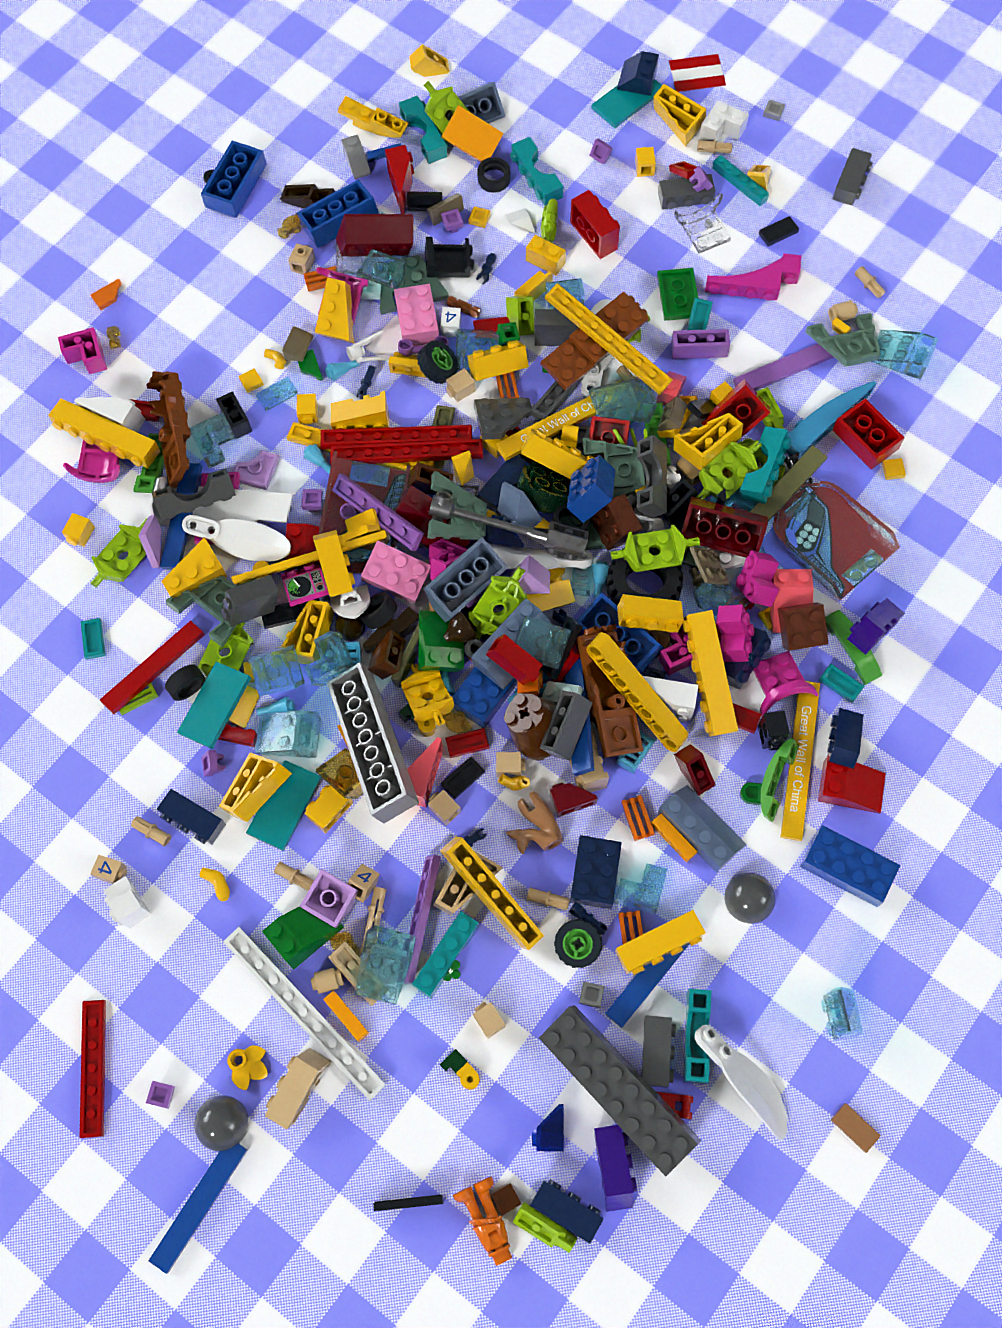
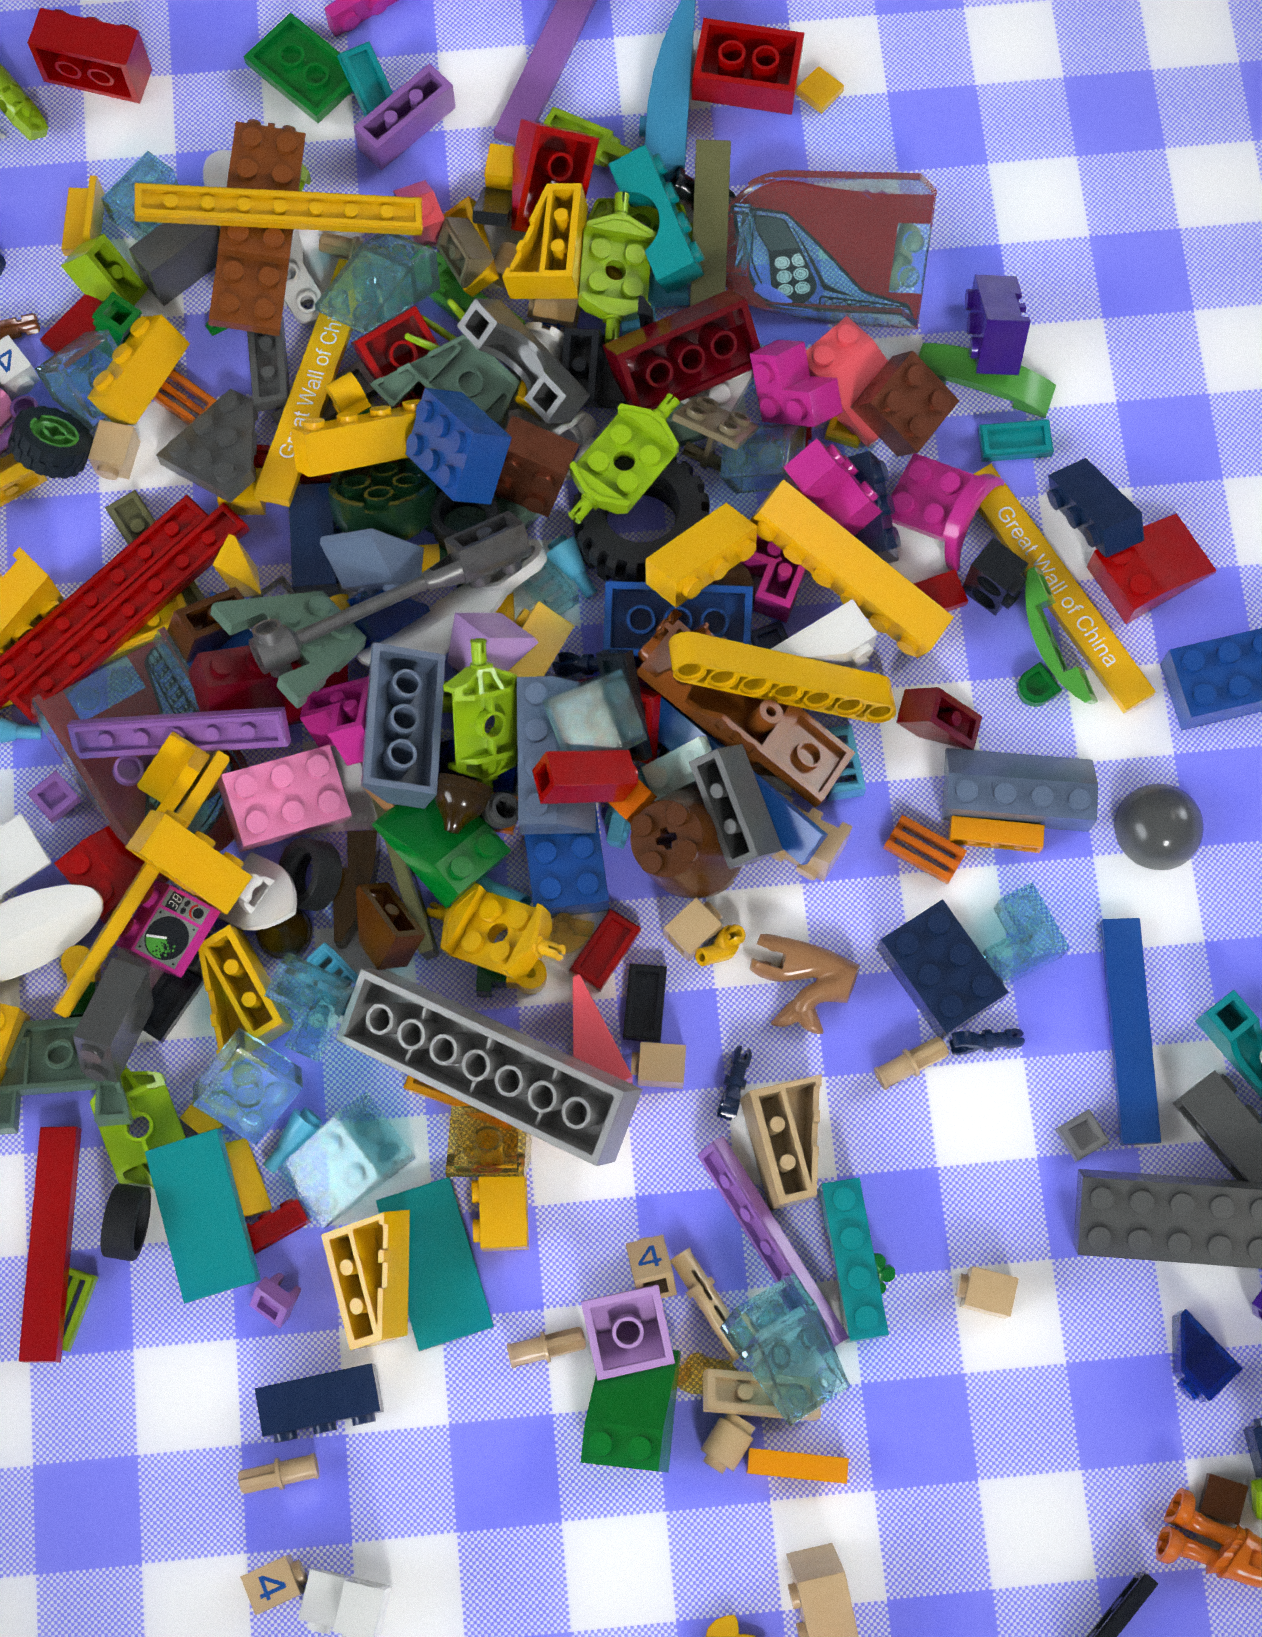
camera: 45 degrees left, 5 degrees up
(219, 882) = (447, 1453): yellow arm -> none
(305, 1014) = (736, 1515): white plate -> none
(467, 1074) = (1028, 1389): leg -> none
(492, 893) = (844, 1121): yellow brick -> none
(545, 255) = (57, 157): yellow brick -> none
(570, 798) = (815, 902): dark red slope -> none
(578, 956) = (985, 1084): black wheel -> none
(629, 915) = (1091, 1017): orange tile -> none
(660, 942) = (1110, 987): yellow brick -> none

